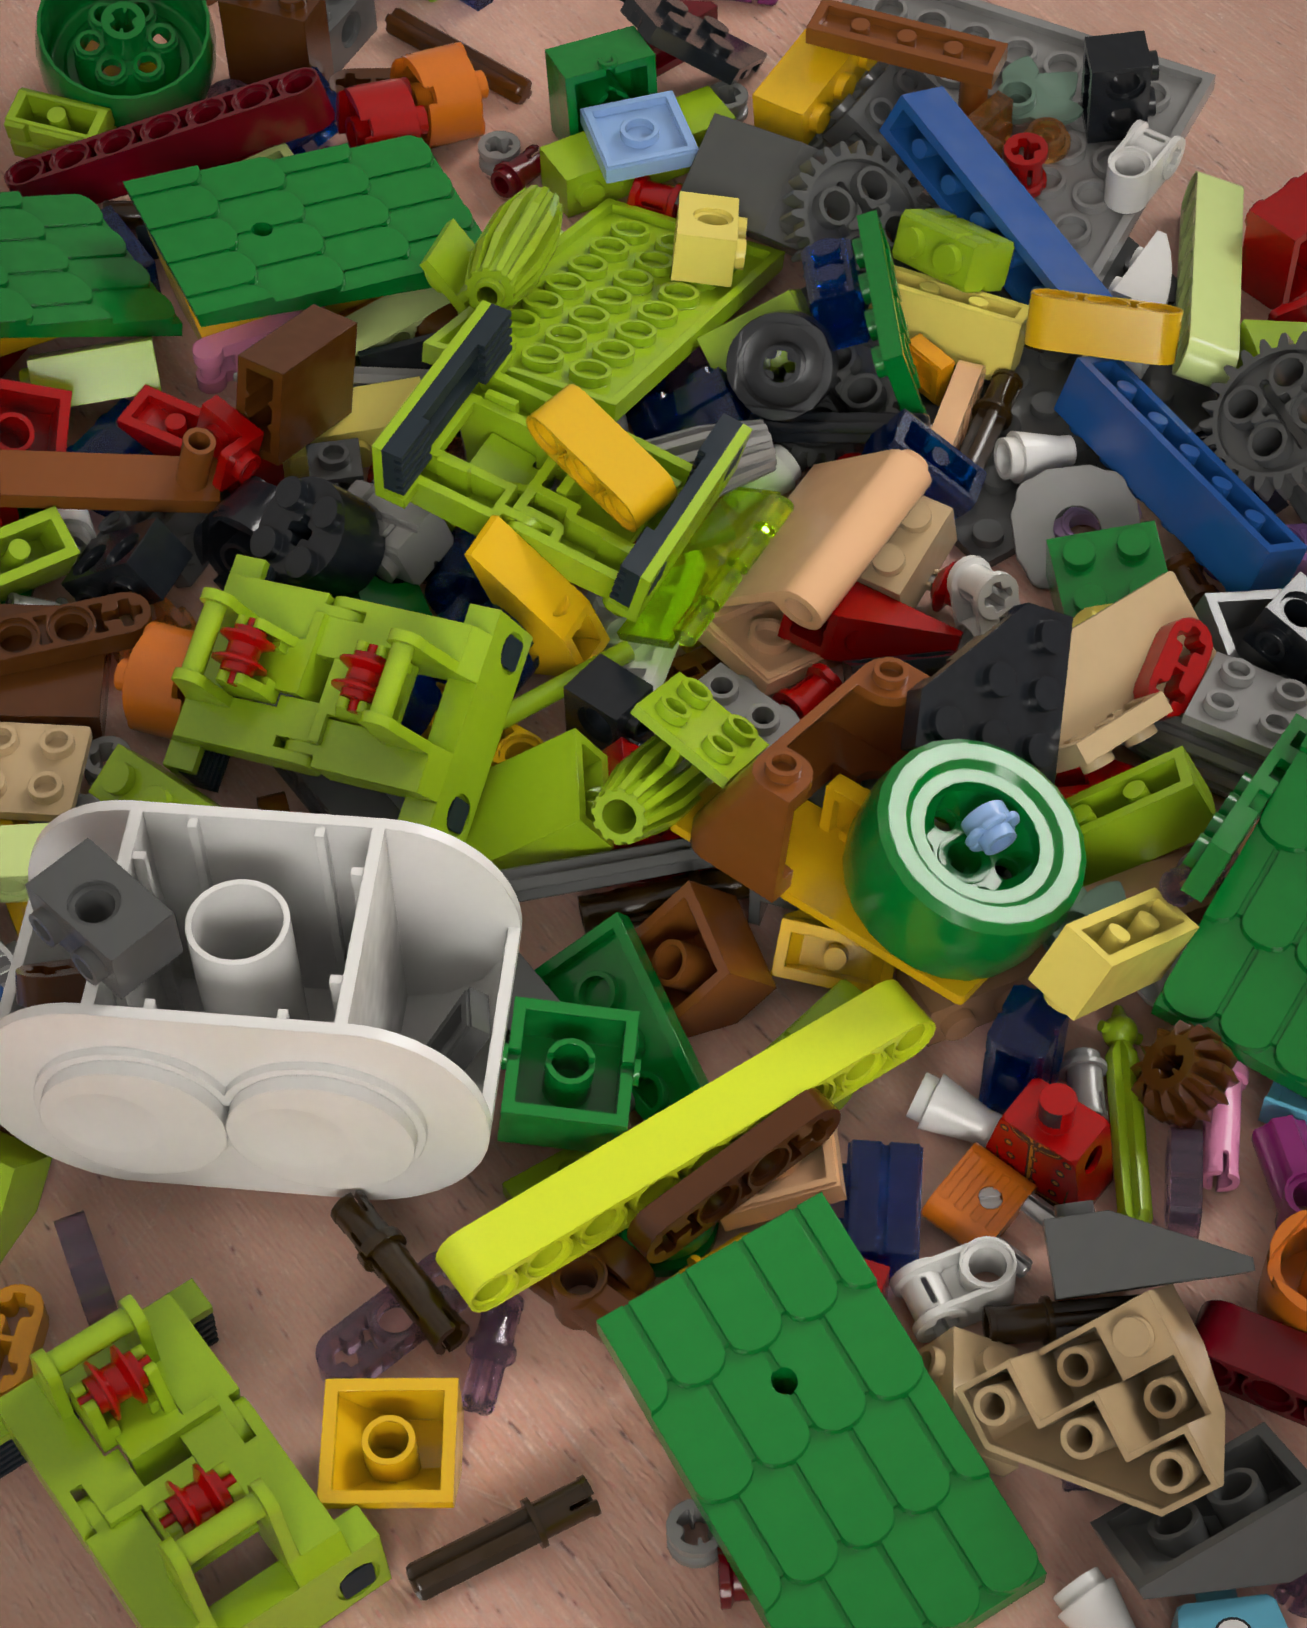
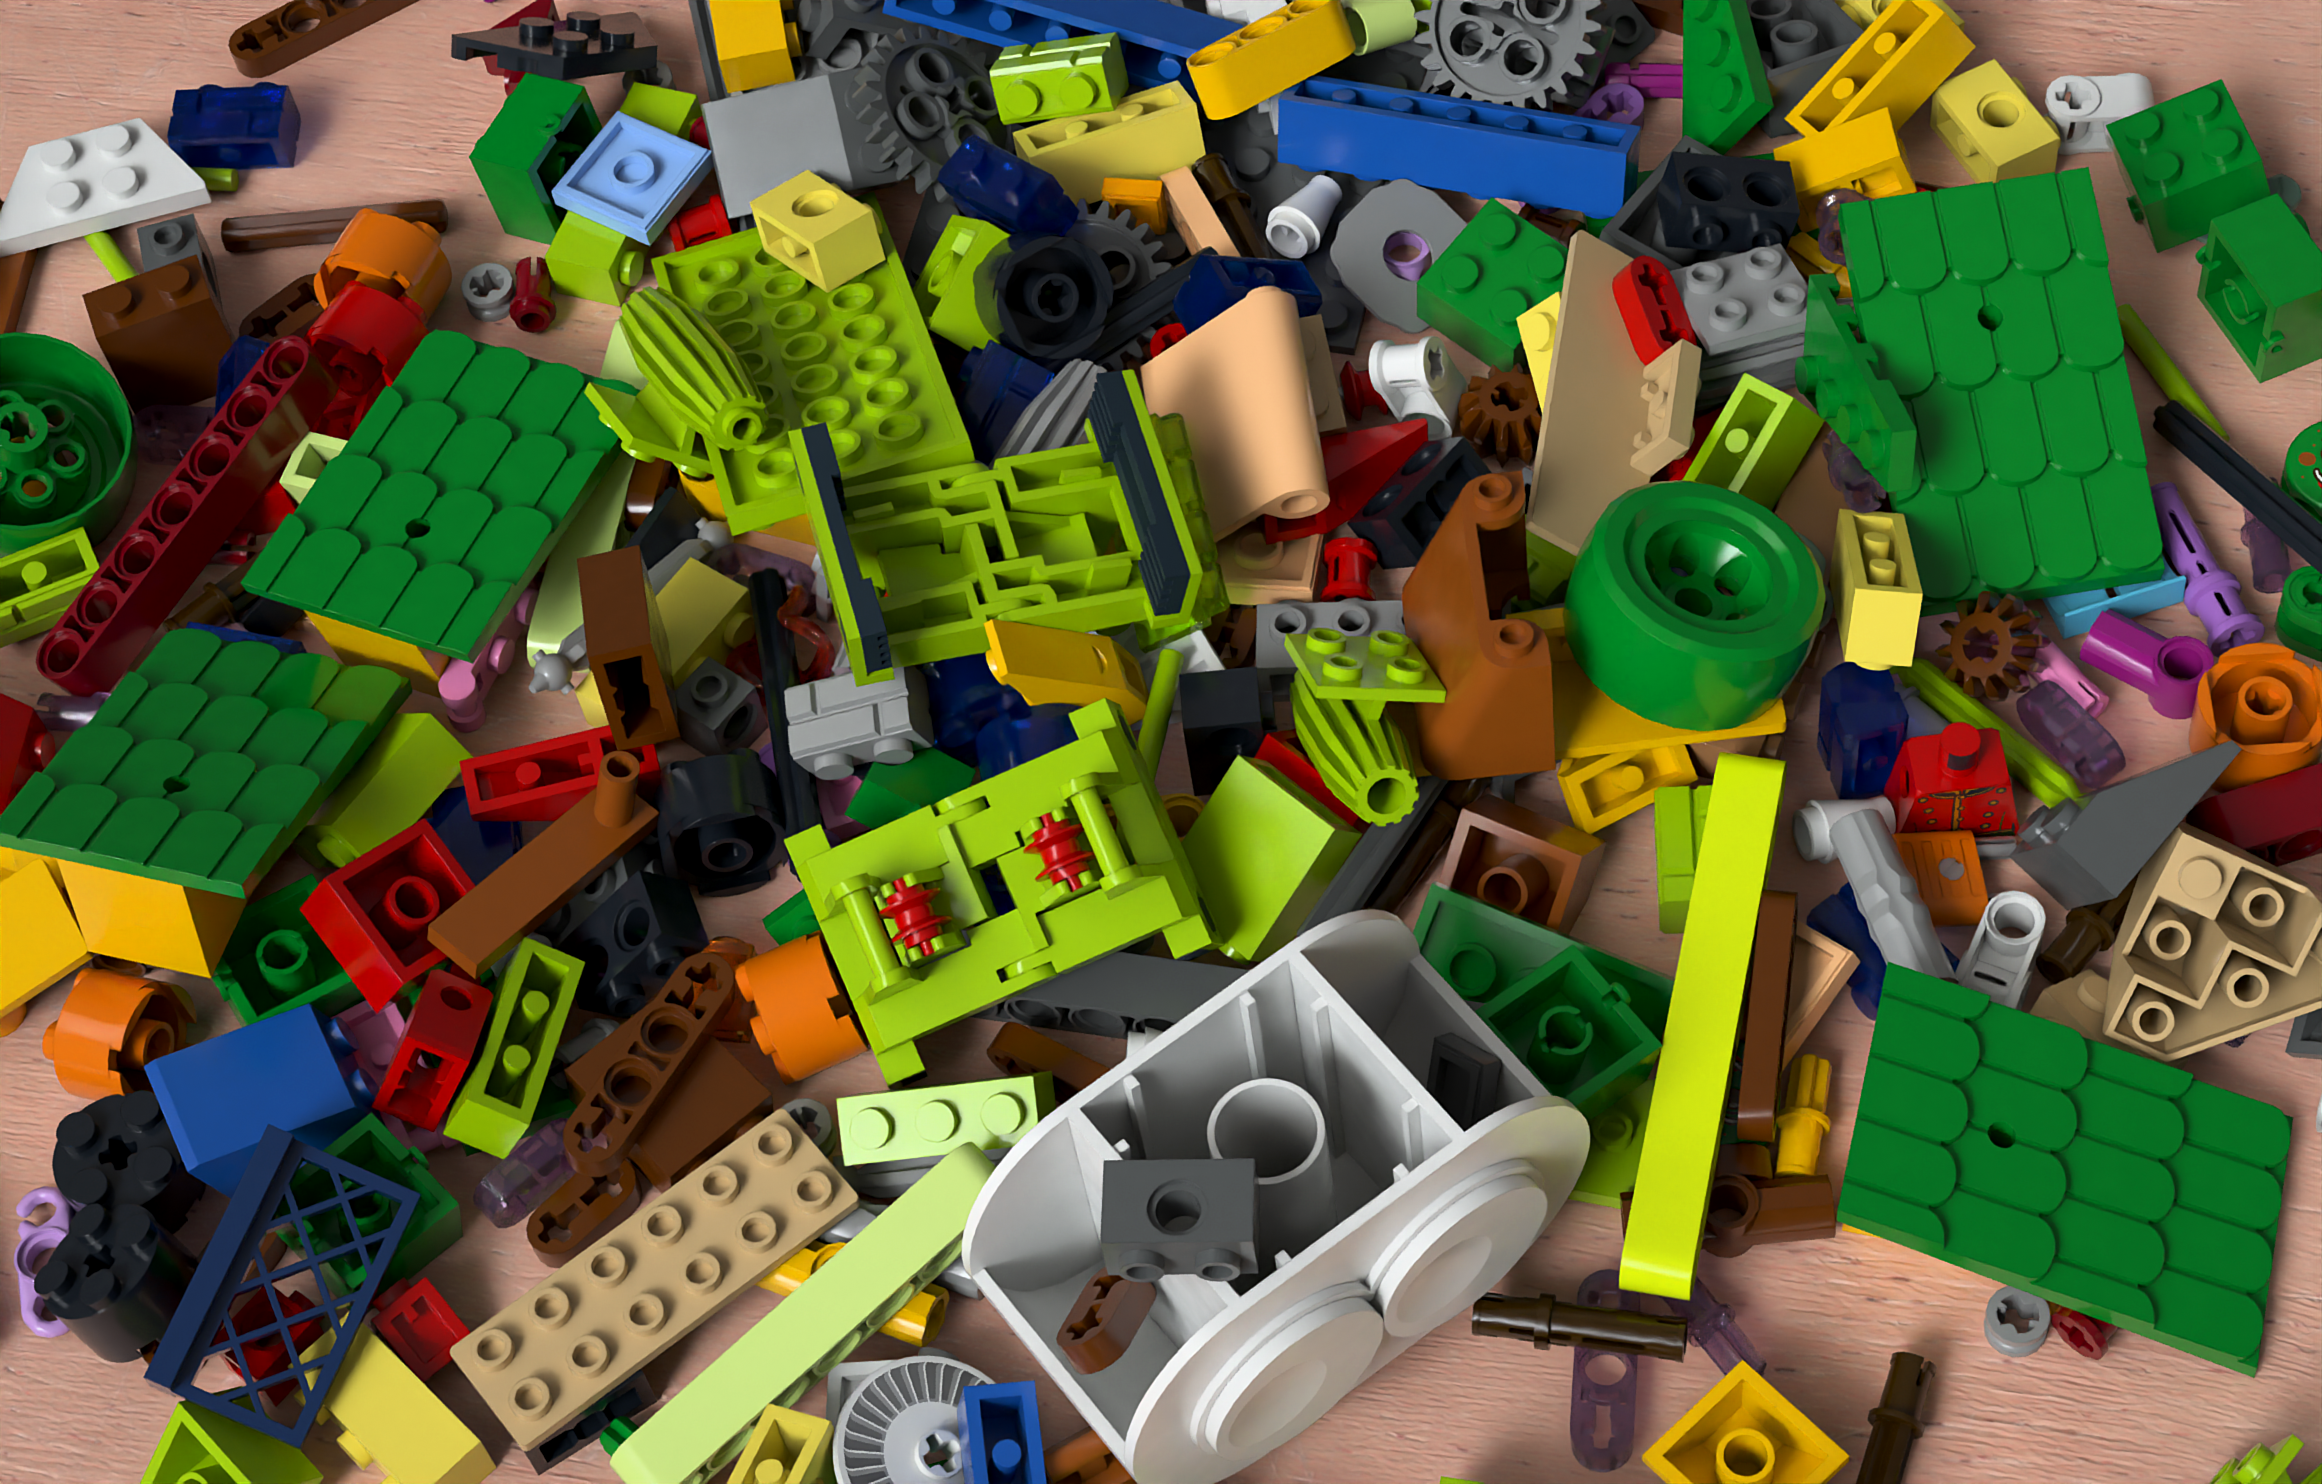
camera: 35 degrees left, 5 degrees up
(236, 442) = (633, 733): red bracket -> none
(320, 537) = (792, 774): black brick -> none
(601, 457) = (1026, 496): yellow beam -> none
(886, 318) = (1093, 178): green wing -> none
(902, 1175) = (1888, 895): none -> light grey axle
(990, 827) = (1698, 559): light blue plate -> none
(999, 689) = (1575, 442): black plate -> none

